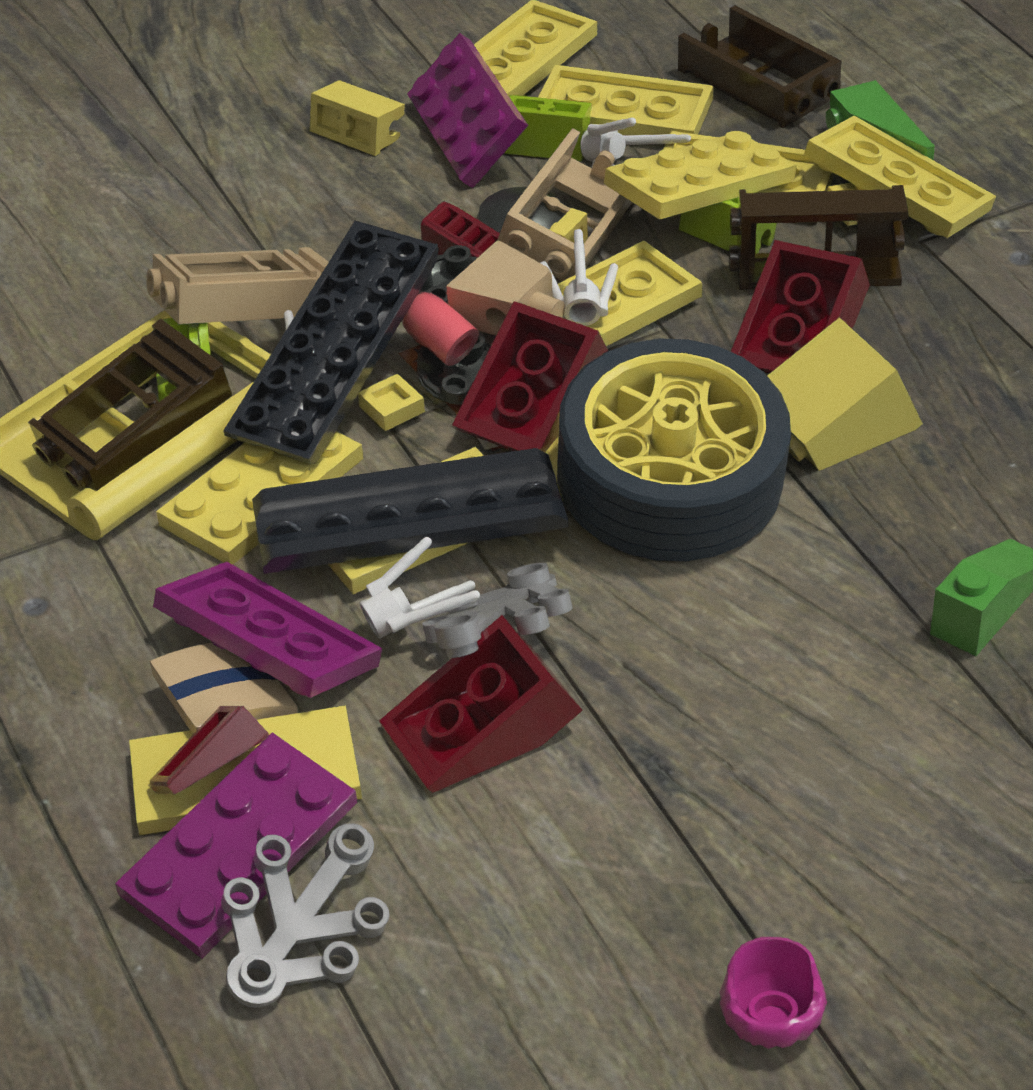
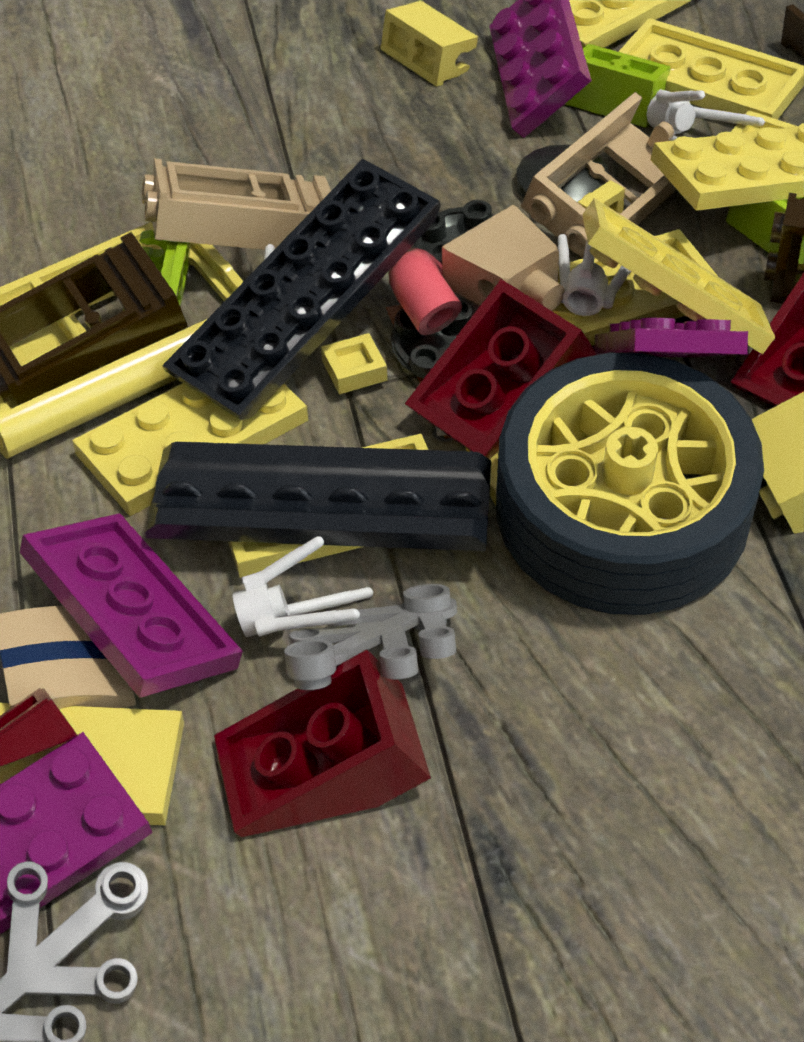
camera: 15 degrees right, 5 degrees up
(453, 226) = (482, 171): dark red slope -> none
(649, 271) = (664, 269): none -> light yellow plate
(677, 322) = (670, 339): none -> magenta plate

